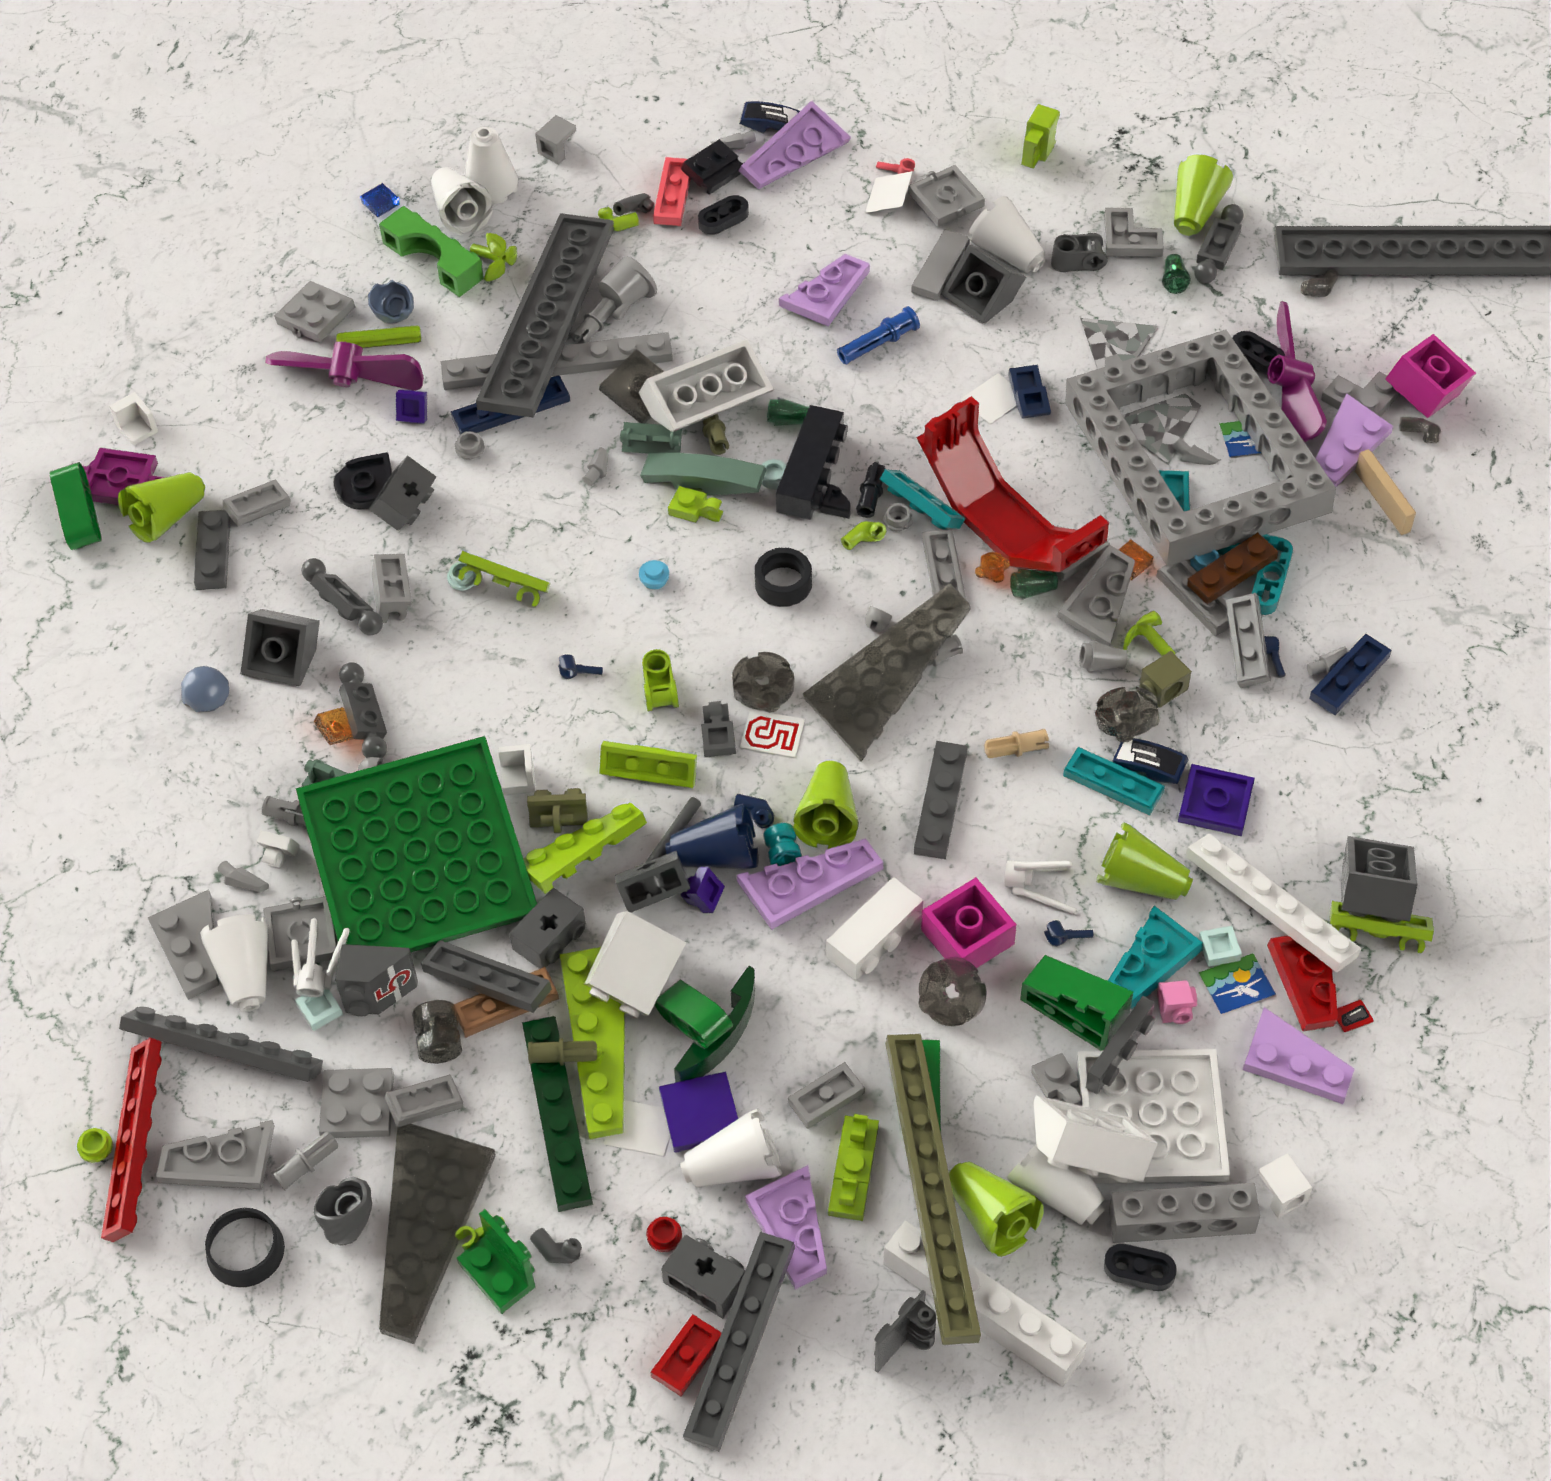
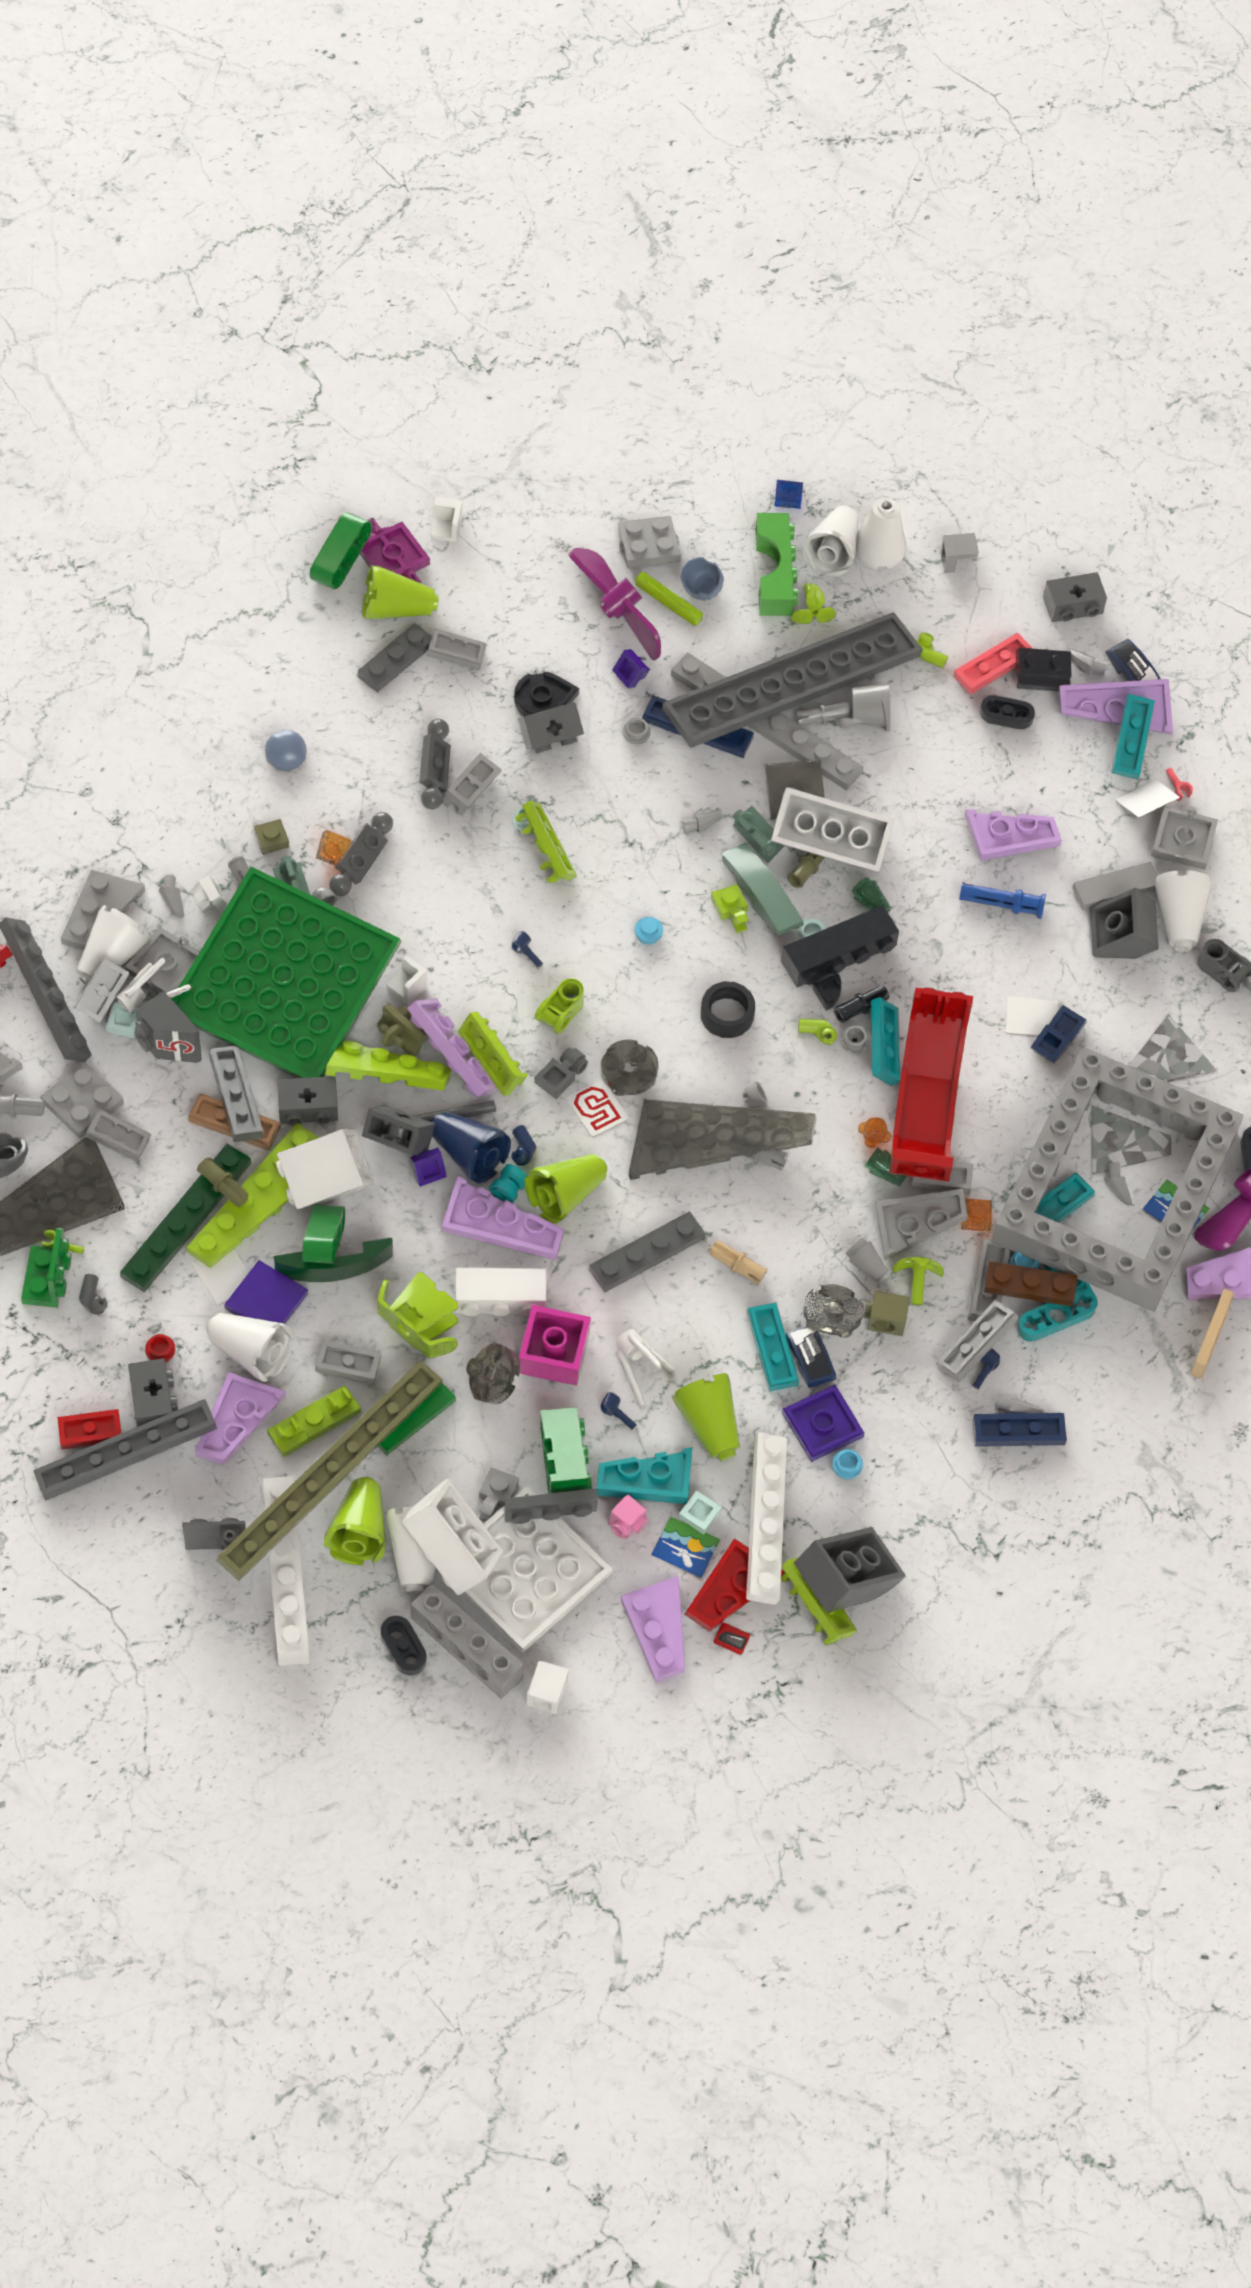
camera: 40 degrees right, 5 degrees up
(270, 762) = (271, 836): none -> olive plate
(279, 646) = (360, 762): dark grey slope -> none
(280, 996) = (101, 990): none -> light grey hinge
(437, 1031) = (173, 1097): clear smoke wheel -> none
(602, 786) = (455, 1049): none -> lavender wing
(634, 202) = (951, 646): dark grey arm -> none
(675, 105) = (1074, 597): none -> dark grey brick
(831, 158) = (1132, 736): none -> teal plate
(839, 1004) = (422, 1315): none -> lime piece
(942, 560) = (844, 1102): light grey tile -> none
(1271, 810) = (847, 1464): none -> medium azure plate

